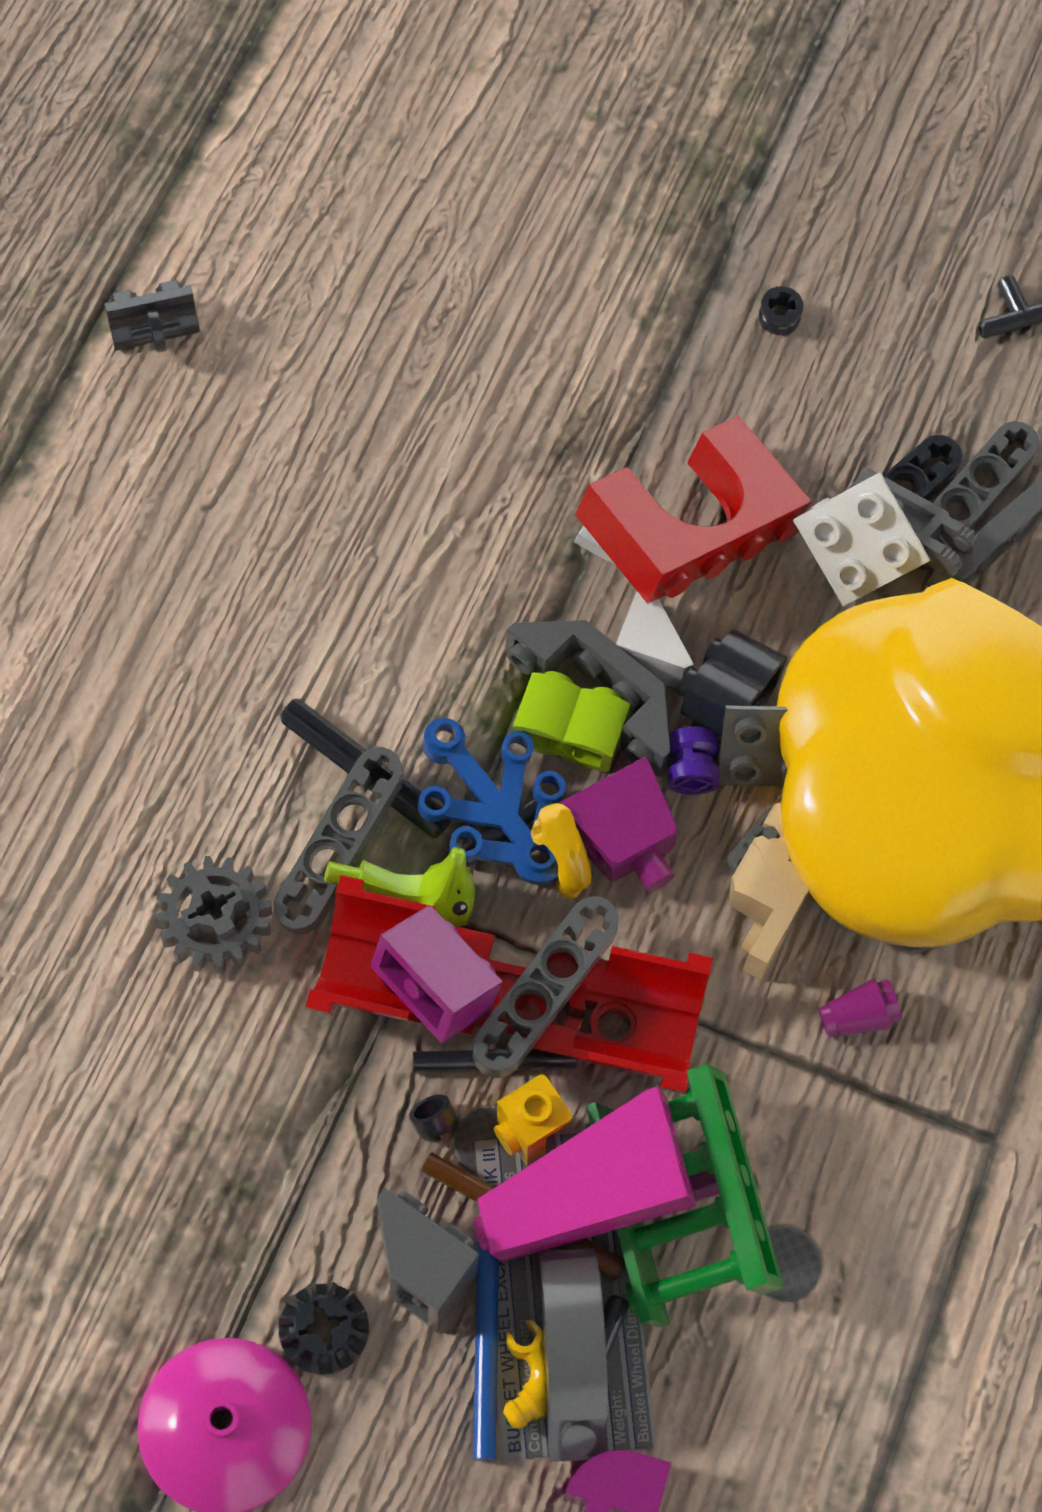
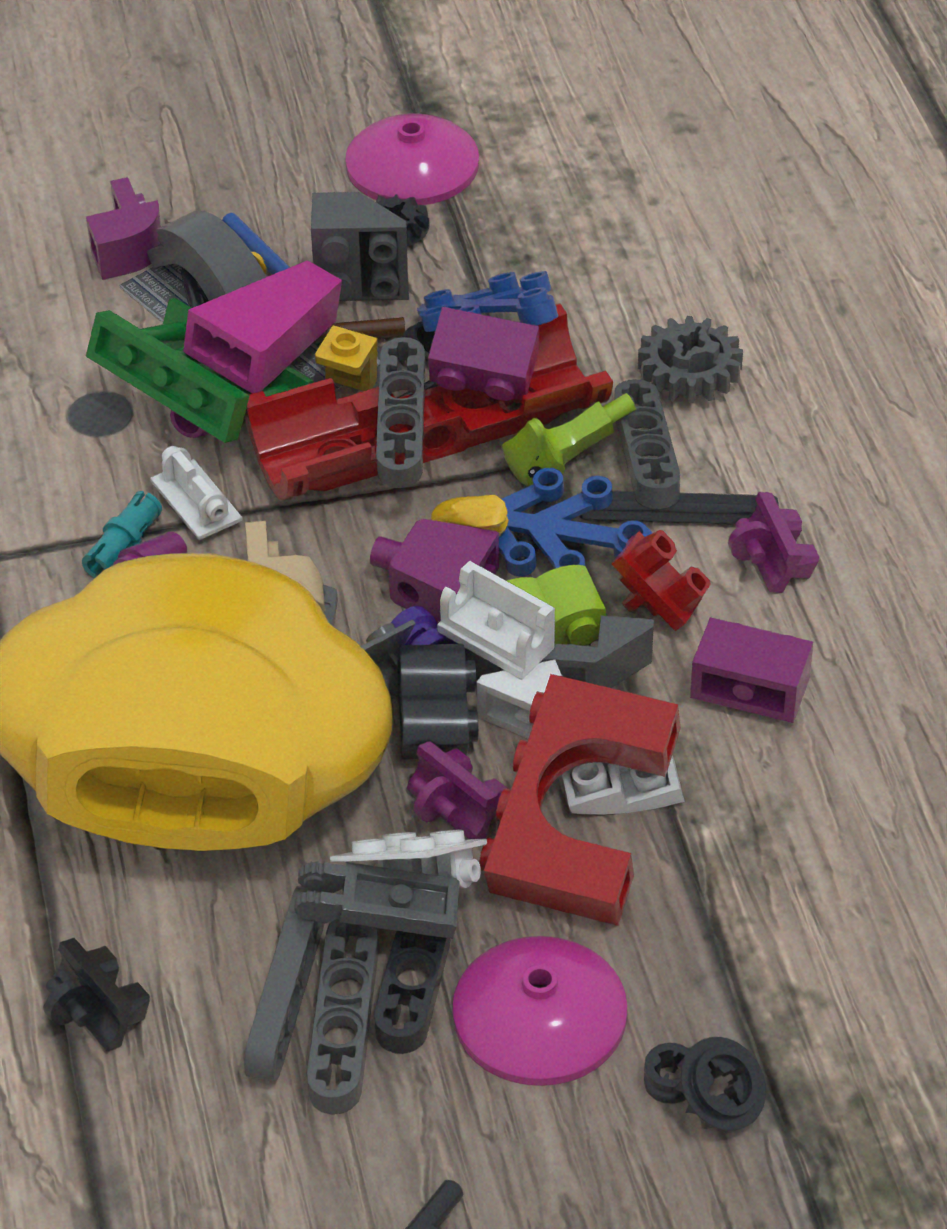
camera: 150 degrees right, 20 degrees down
(335, 666) = (771, 544): none -> magenta hips
(365, 1082) = (504, 295): none -> blue plant
(462, 550) = (755, 666): none -> magenta brick
(462, 674) = (656, 582): none -> red hips
(646, 686) = (497, 621): none -> white hinge
(762, 267) = (742, 1097): none -> black gear
(764, 586) = (451, 792): none -> magenta hips
(770, 1067) = (193, 494): none -> white hinge
(823, 436) = (533, 1031): none -> dark pink dish
(864, 1066) = (122, 532): none -> teal pin

